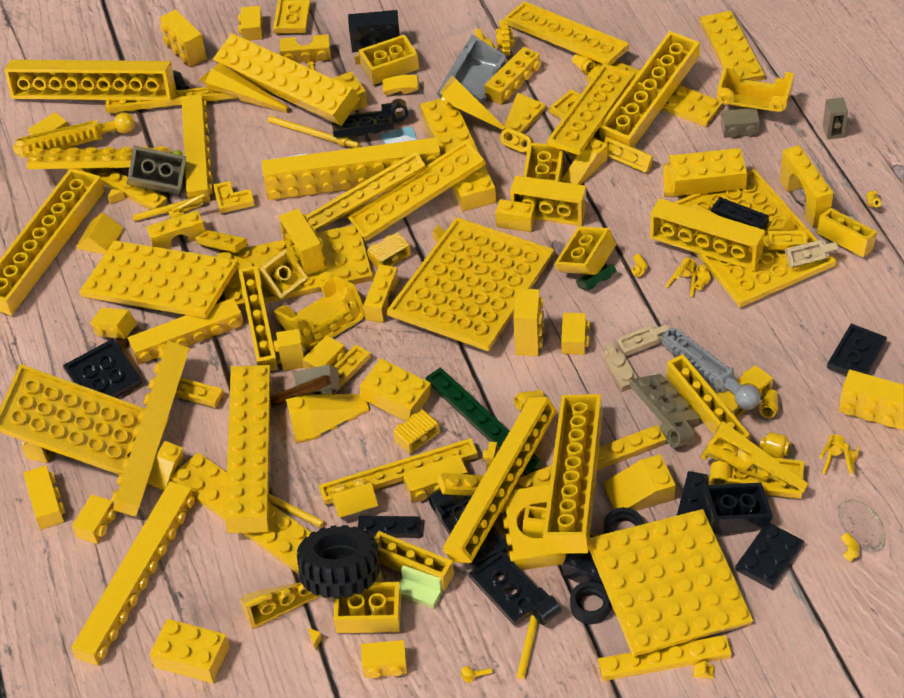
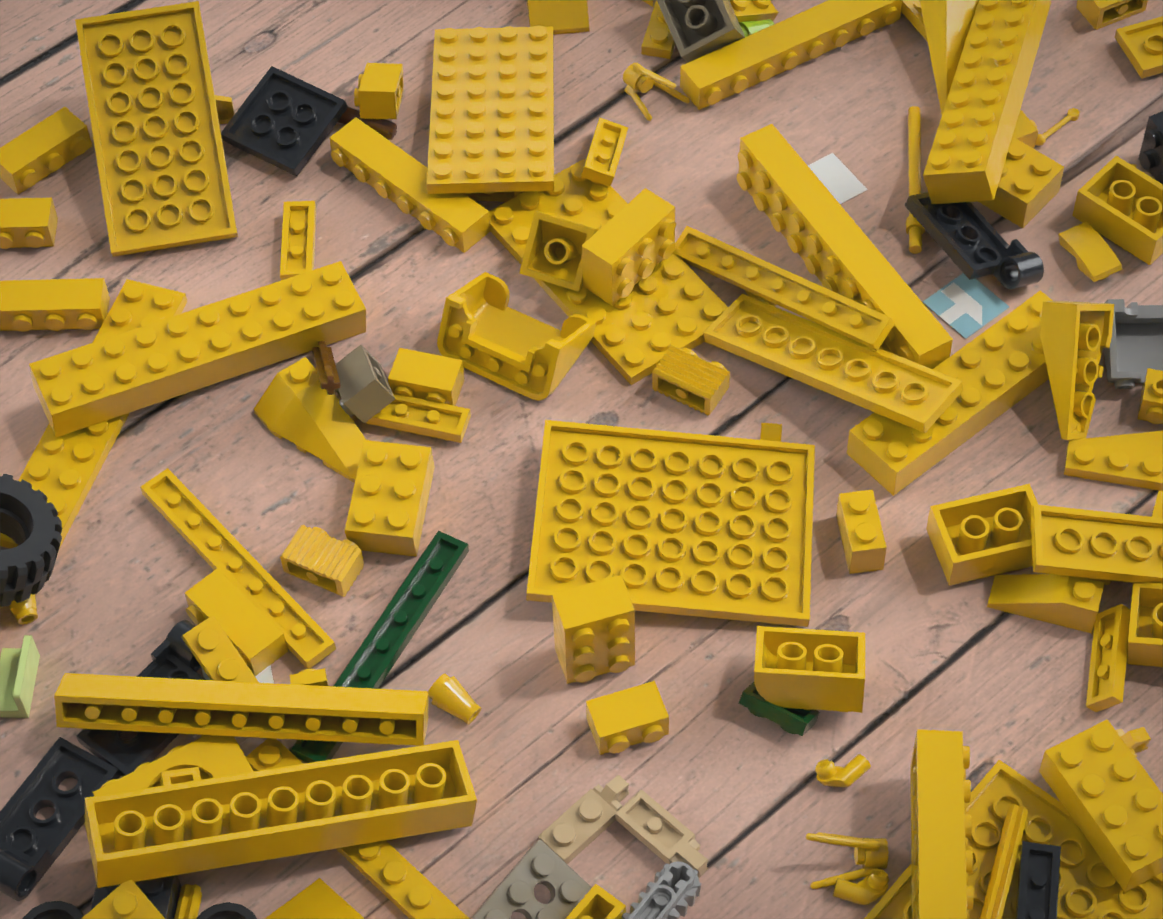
camera: 65 degrees right, 5 degrees up
(150, 430) = (191, 213): yellow brick -> none
(161, 210) = (648, 61): yellow bar -> none
(164, 231) = (586, 76): yellow arch -> none
(165, 465) = (144, 262): yellow slope -> none
(230, 201) = (705, 129): yellow plate -> none
(257, 317) = (451, 259): yellow brick -> none
(289, 349) = (412, 321): yellow brick -> none
(296, 511) = (119, 459): yellow bar -> none
(317, 50) = (1105, 108): yellow arch -> none
(353, 497) = (151, 523): yellow brick -> none
(383, 285) = (616, 395): yellow arch -> none
(392, 525) = (128, 596): black plate -> none
(398, 553) = (54, 643): yellow brick -> none
(518, 140) = (1049, 470): yellow plate -> none
(552, 199) = (914, 568): yellow brick -> none

